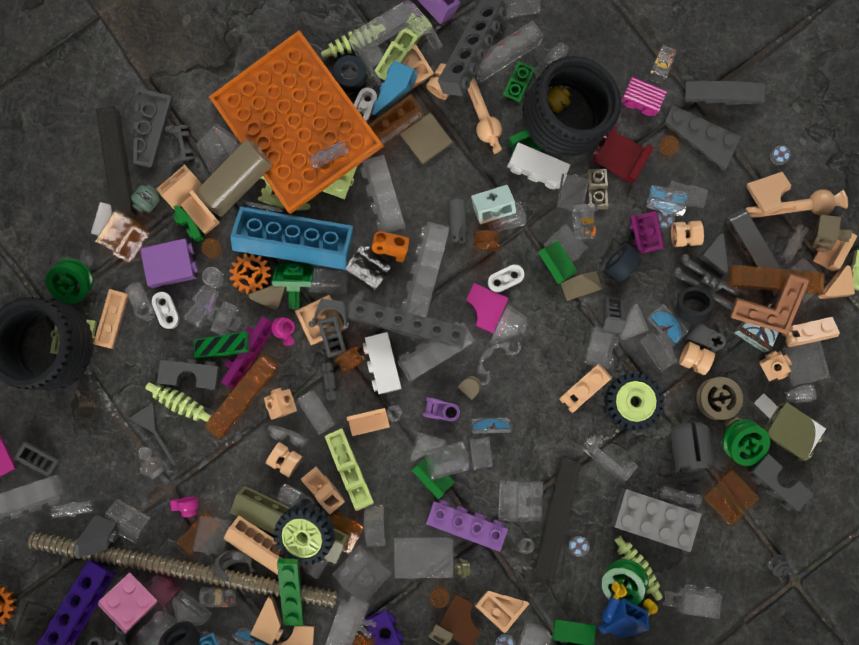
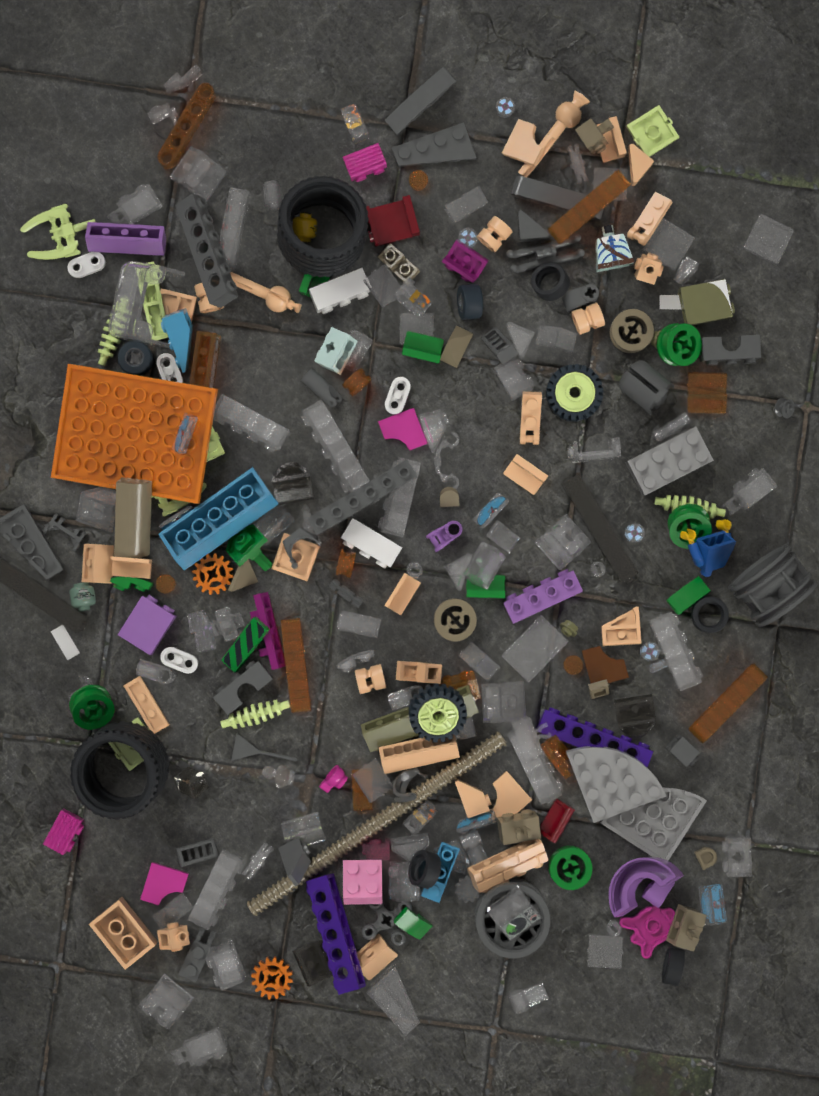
camera: 45 degrees left, 5 degrees up
(122, 235) = (95, 638): clear orange slope -> none
(212, 273) = (185, 603): clear wheel -> none
(280, 403) = (328, 643): light nougat brick -> none
(283, 328) = (276, 589): dark pink piece -> none
(290, 592) = (467, 762): green plate -> none
(325, 338) = (331, 566): dark grey slope -> none
(349, 469) = (422, 640): yellowish green slope -> none
(371, 476) = (466, 610): none -> dark tan wheel
(390, 244) = (292, 453): orange leg -> none
(426, 138) = (238, 350): dark tan tile -> none
(519, 81) = (263, 240): green slope -> none
(541, 425) = (525, 474): none -> light nougat panel
(667, 200) = (457, 223): clear slope -> none
(668, 324) = (544, 314): slope -> none
(782, 315) = (612, 239): nougat plate -> none

